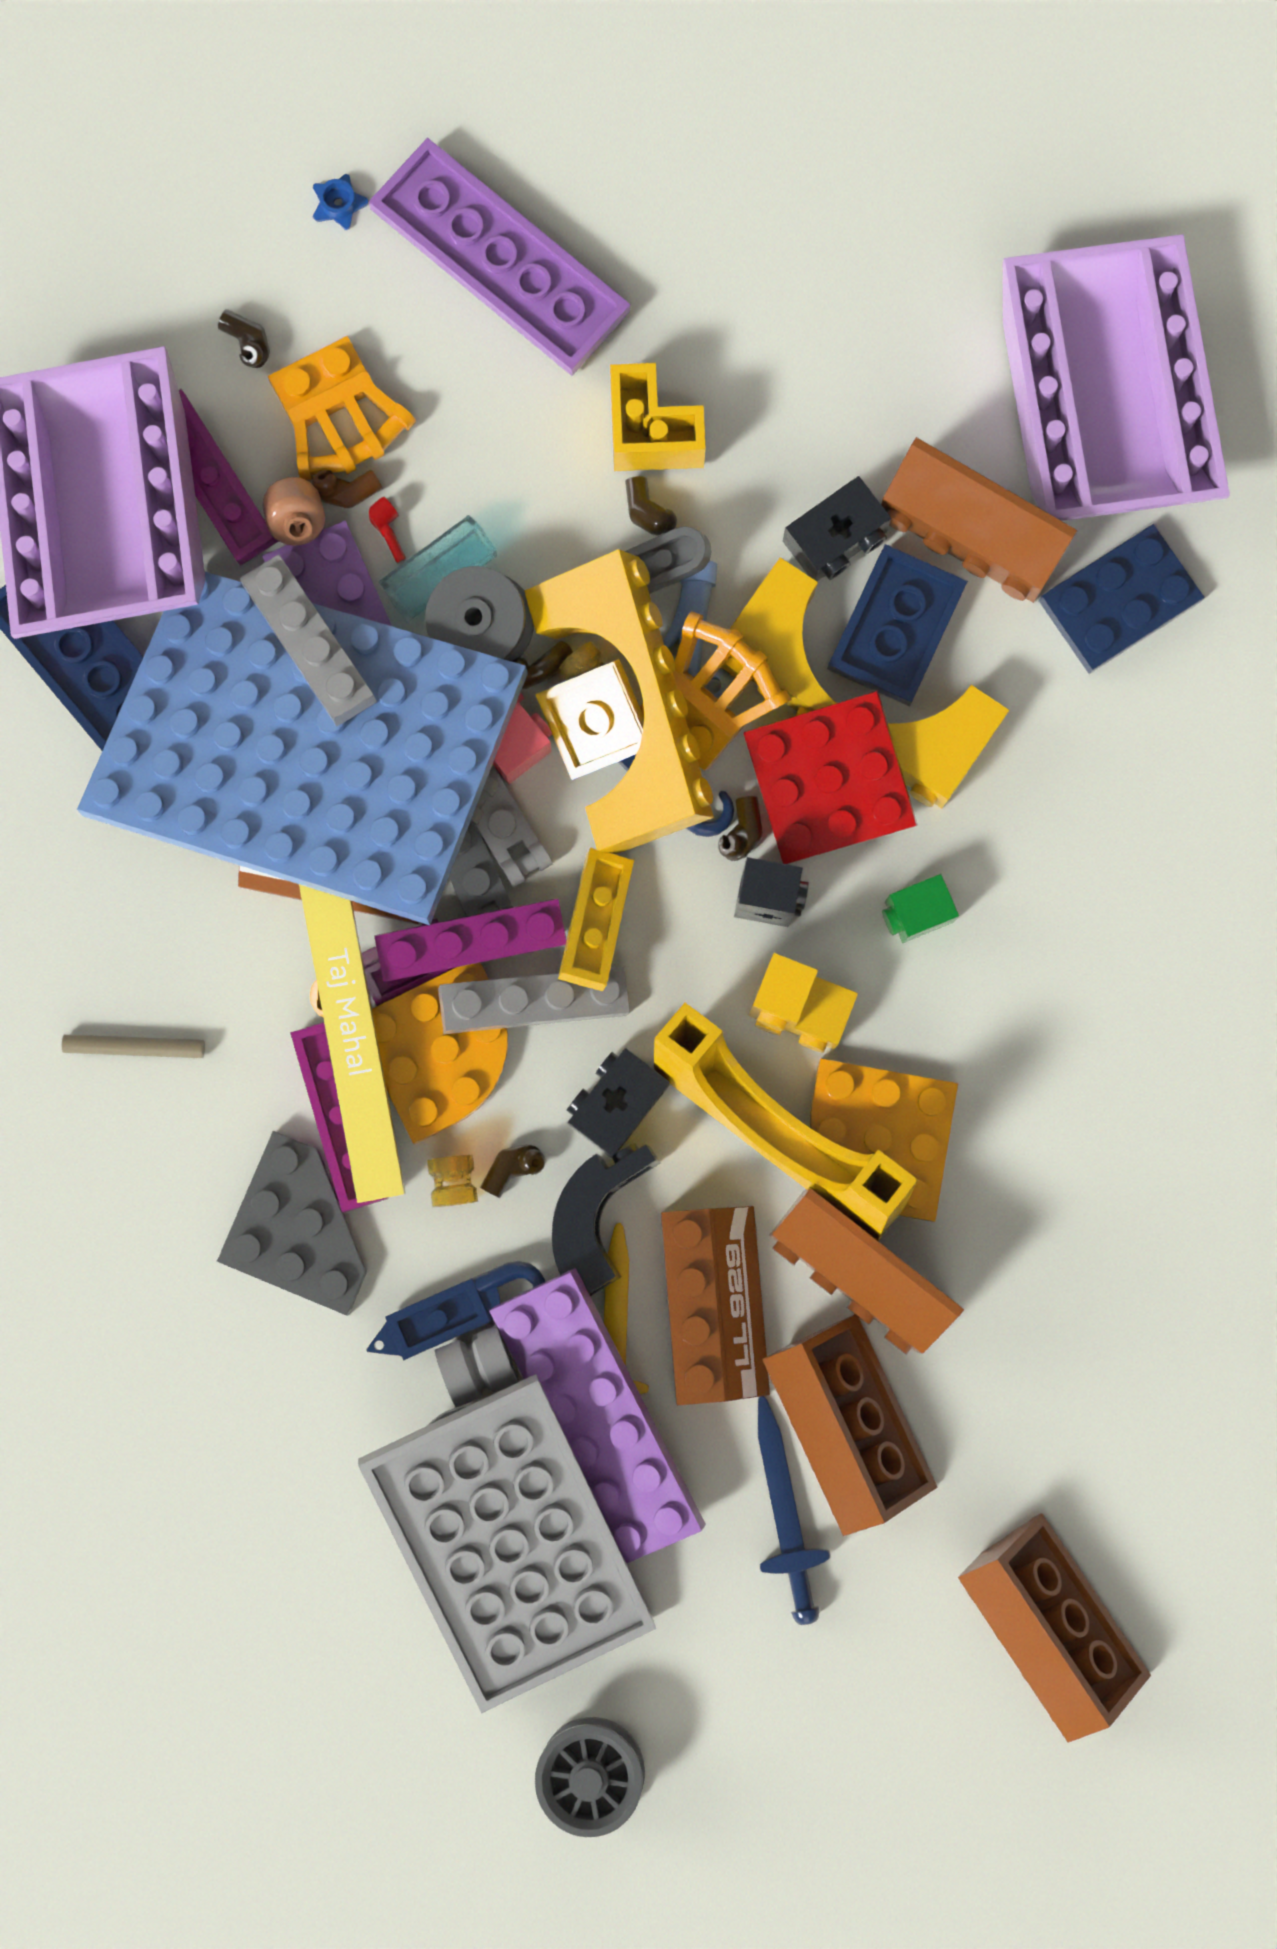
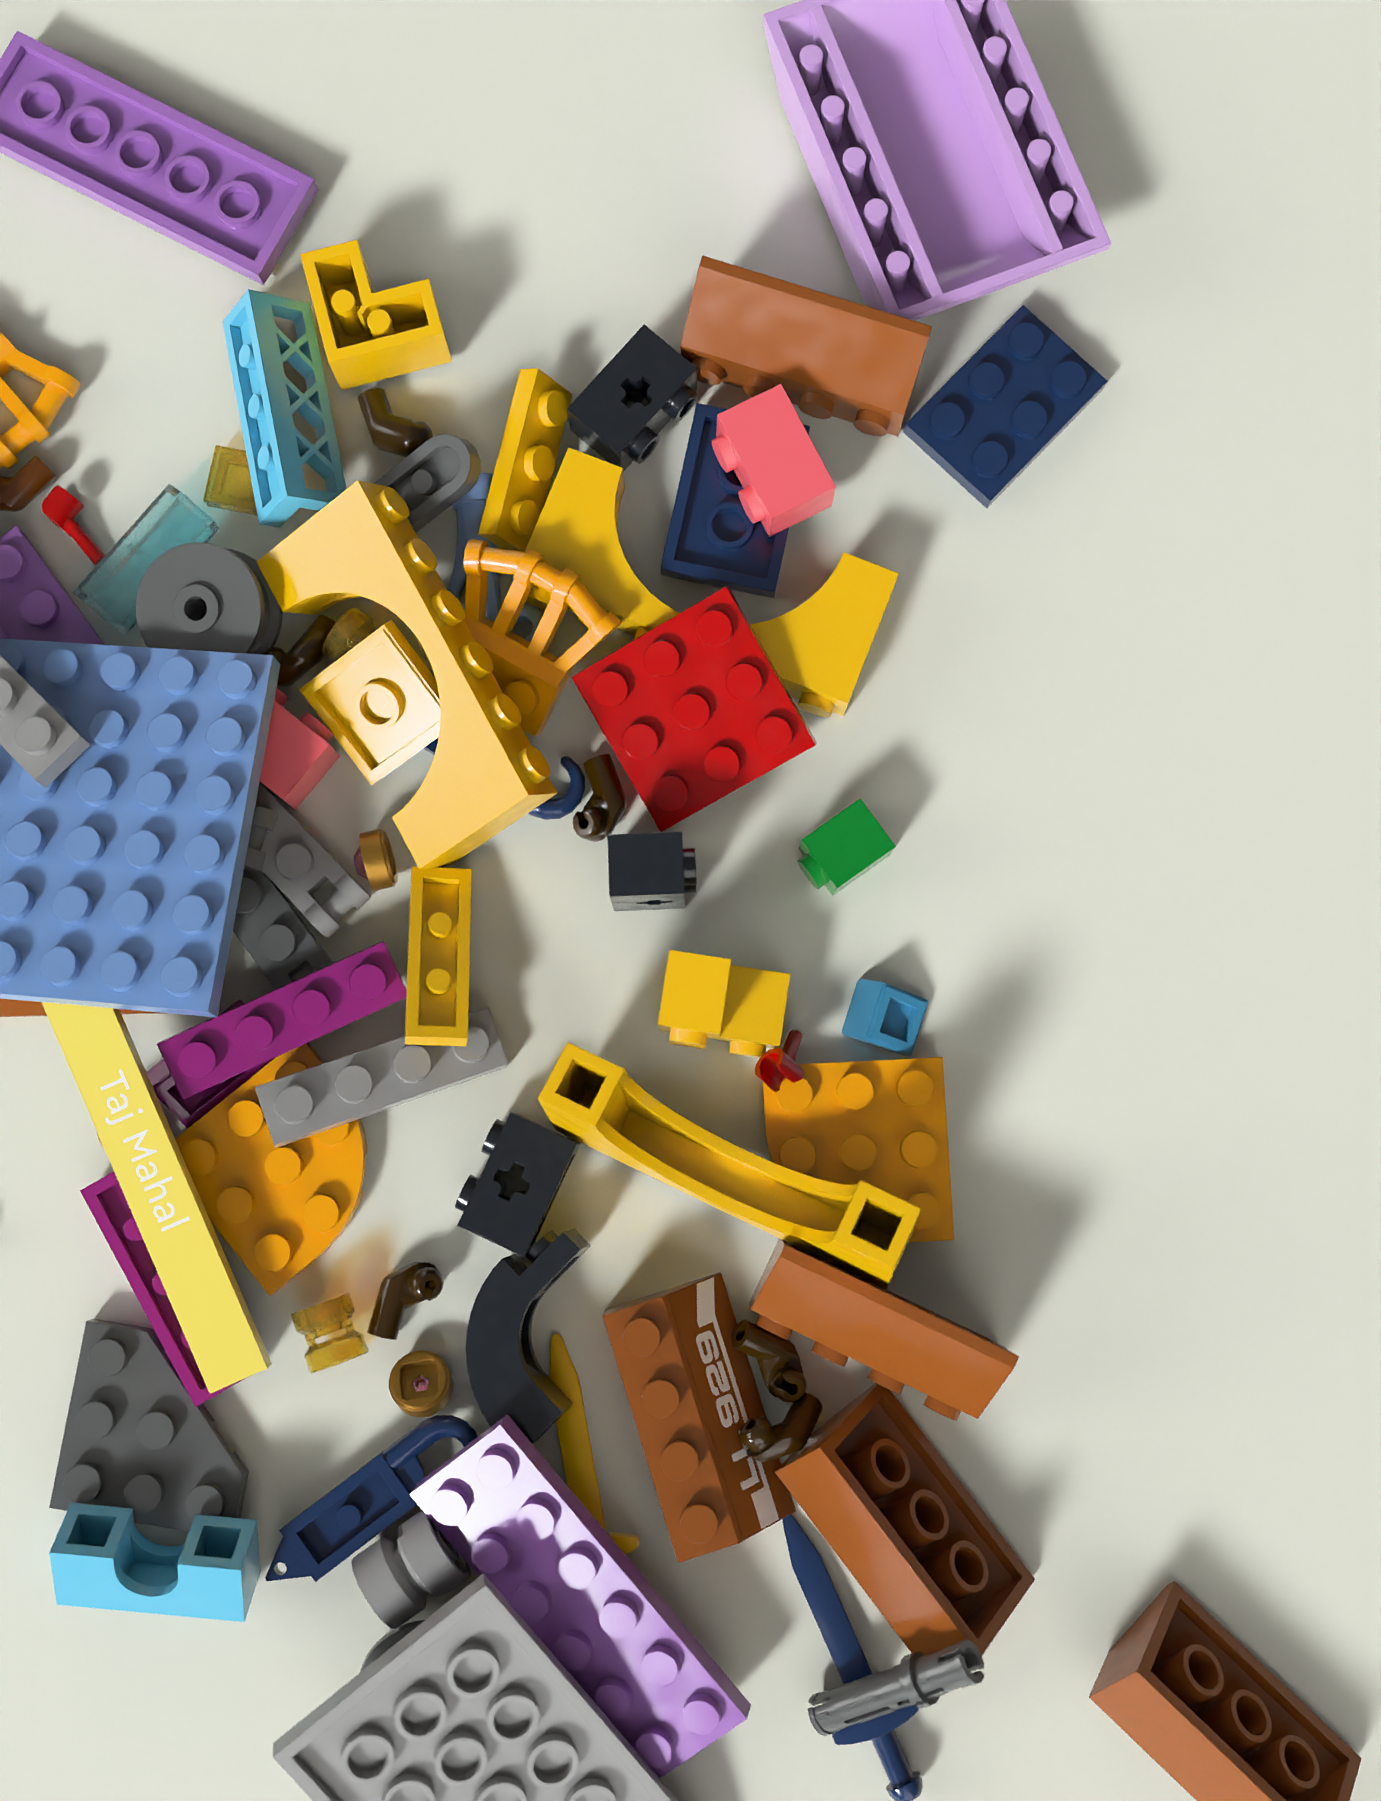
camera: 10 degrees left, 0 degrees up
(255, 1314) = (109, 1565): none -> medium azure arch
(511, 1235) = (421, 1383): none -> pearl gold tile
(521, 523) = (230, 482): none -> clear yellow tile
(560, 469) = (264, 400): none -> medium azure fence
(562, 836) = (376, 860): none -> pearl gold tile
(744, 559) = (525, 460): none -> yellow plate
(776, 1336) = (784, 1438): none -> dark brown arm
(781, 1278) = (776, 1360): none -> dark brown arm
(831, 1531) = (916, 1680): none -> dark grey pin
(835, 1058) = (780, 1063): none -> red hand
(921, 1043) = (884, 1016): none -> dark azure slope
(933, 603) = (773, 461): none -> coral brick

